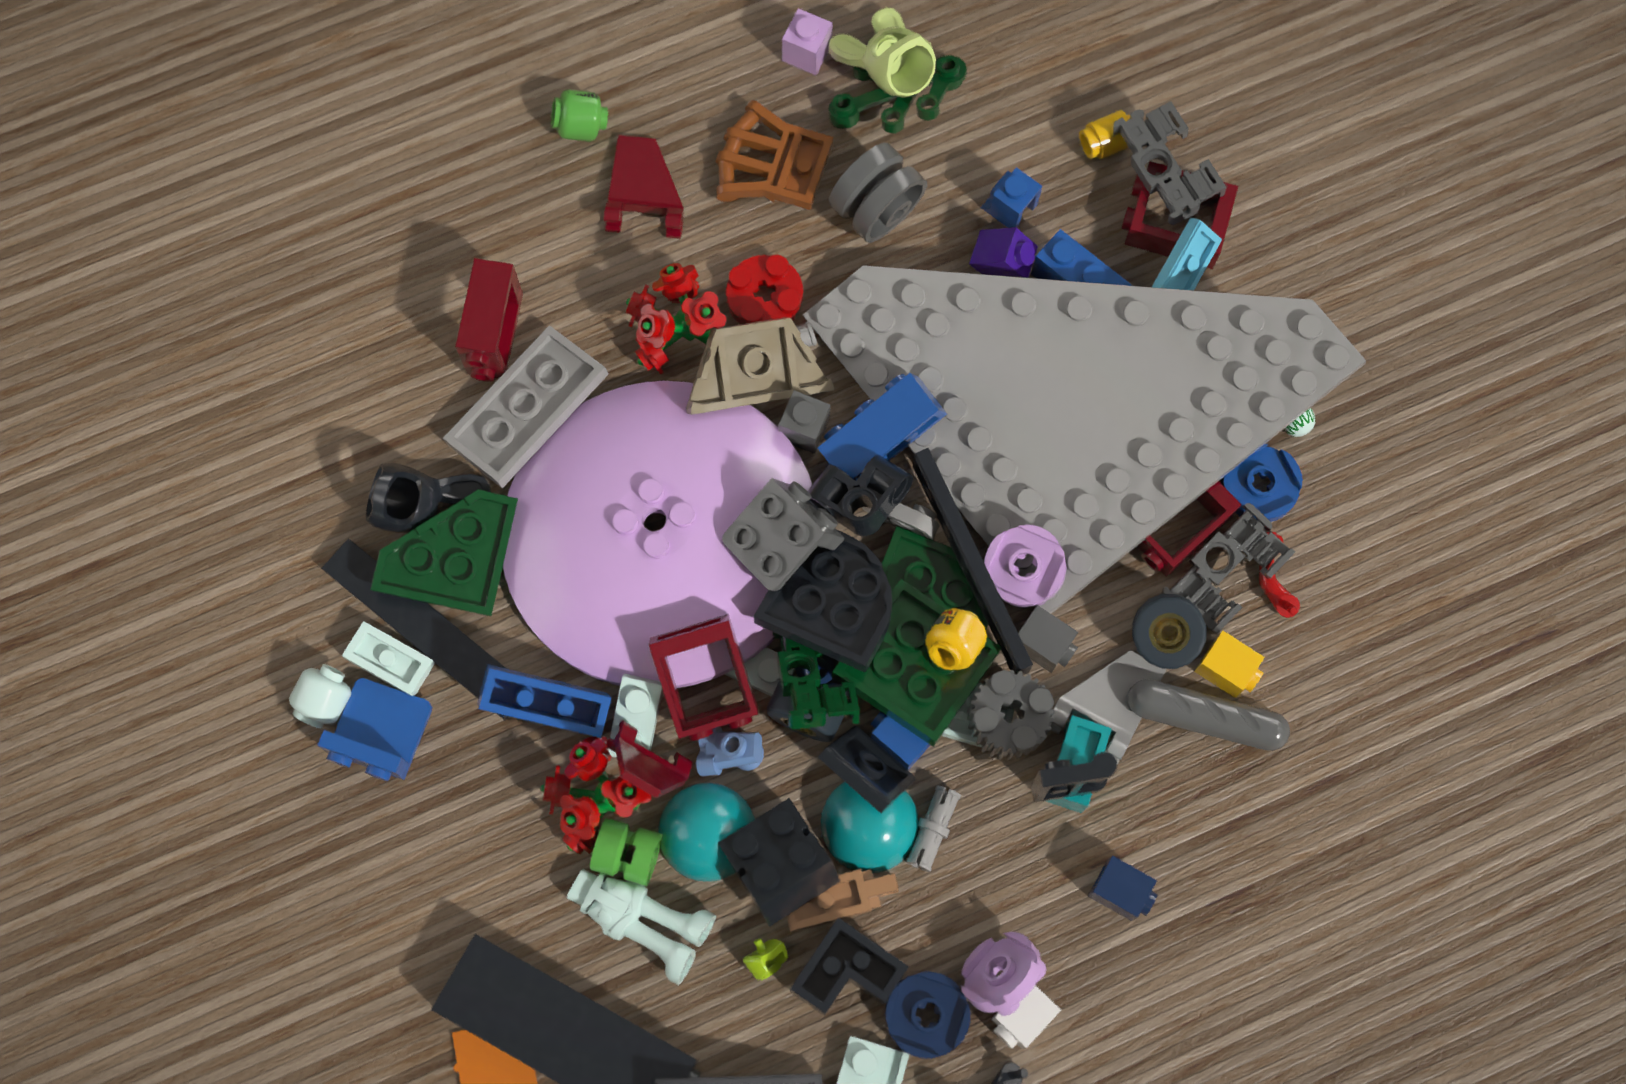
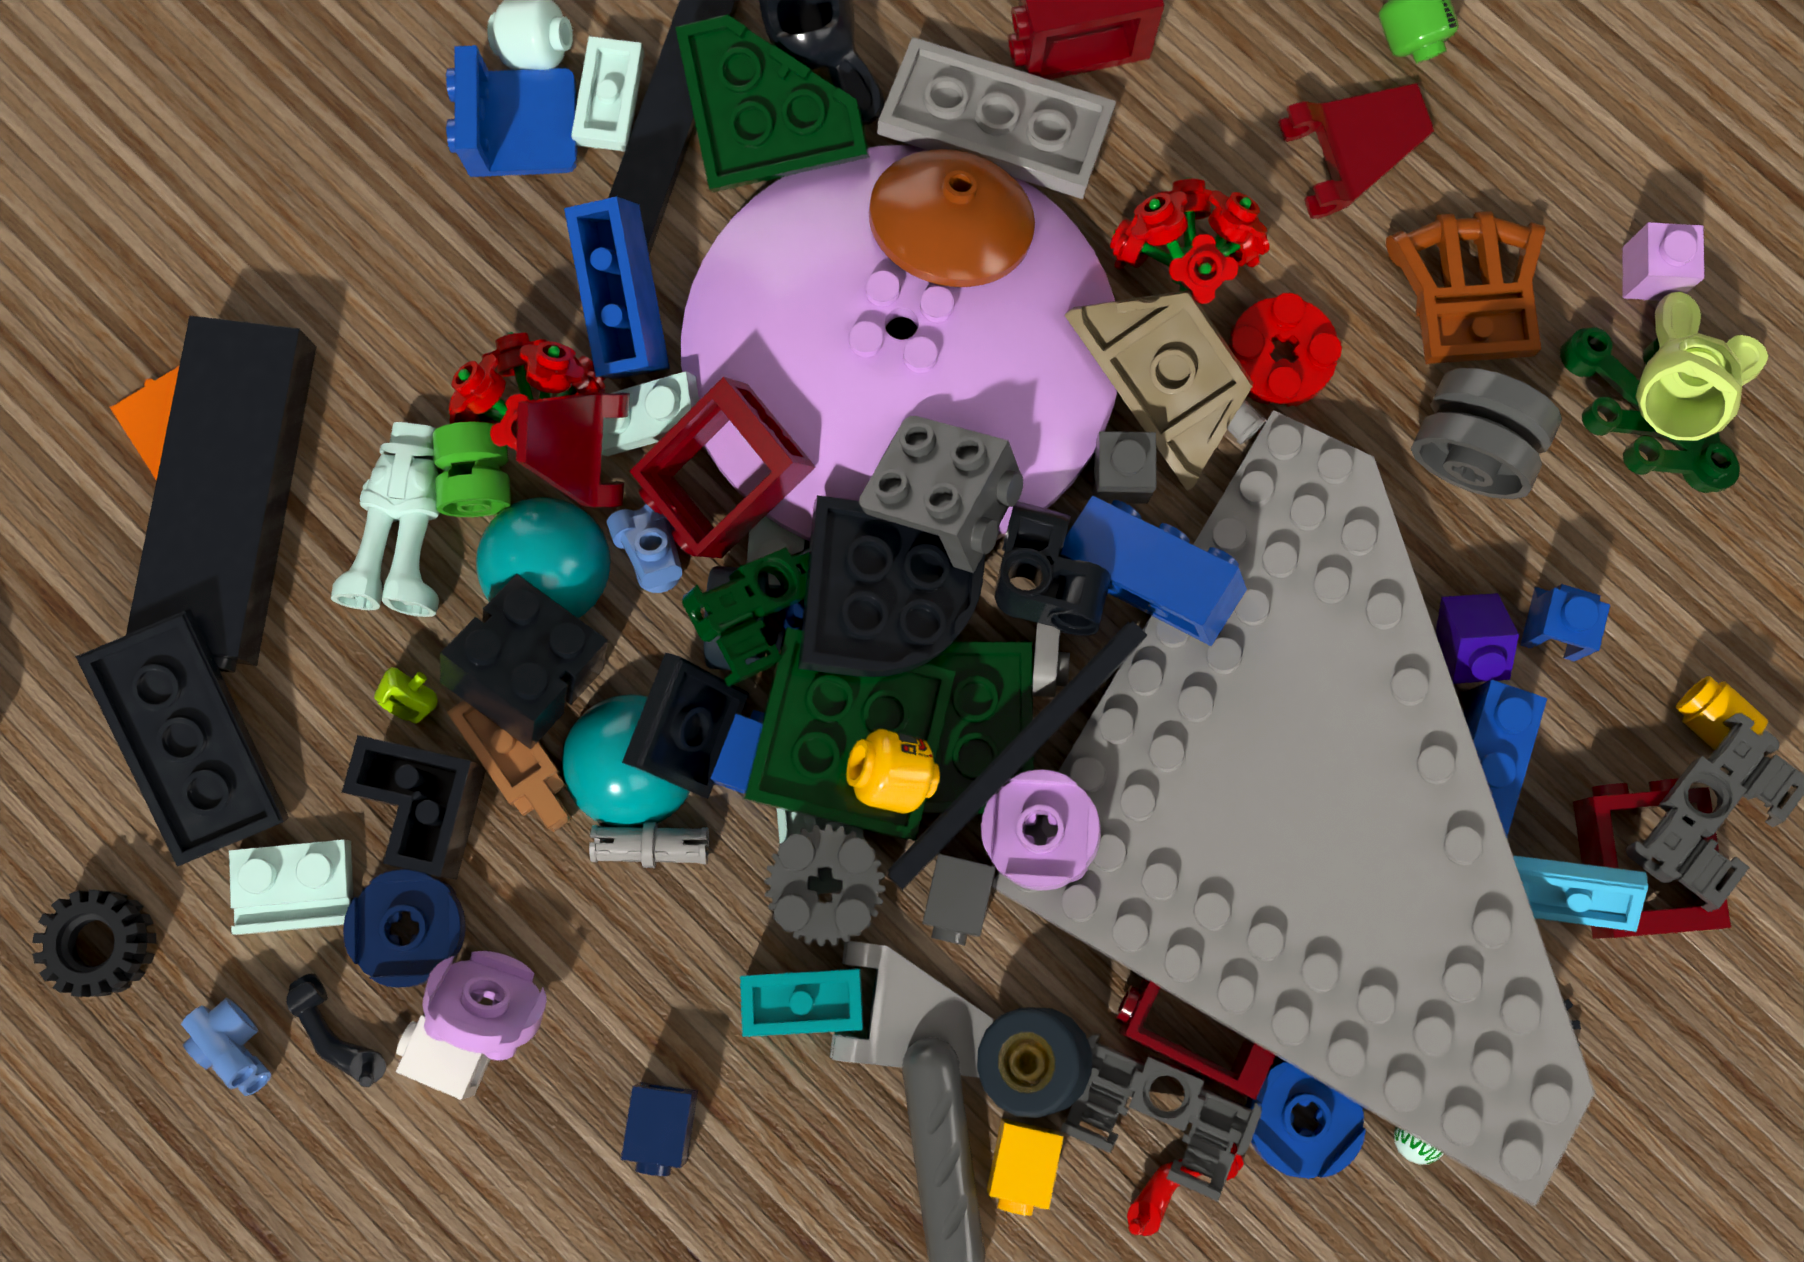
camera: 70 degrees right, 5 degrees up
(598, 472) = (951, 218): none -> dark orange dish
(1066, 780) = (747, 982): black plate -> none

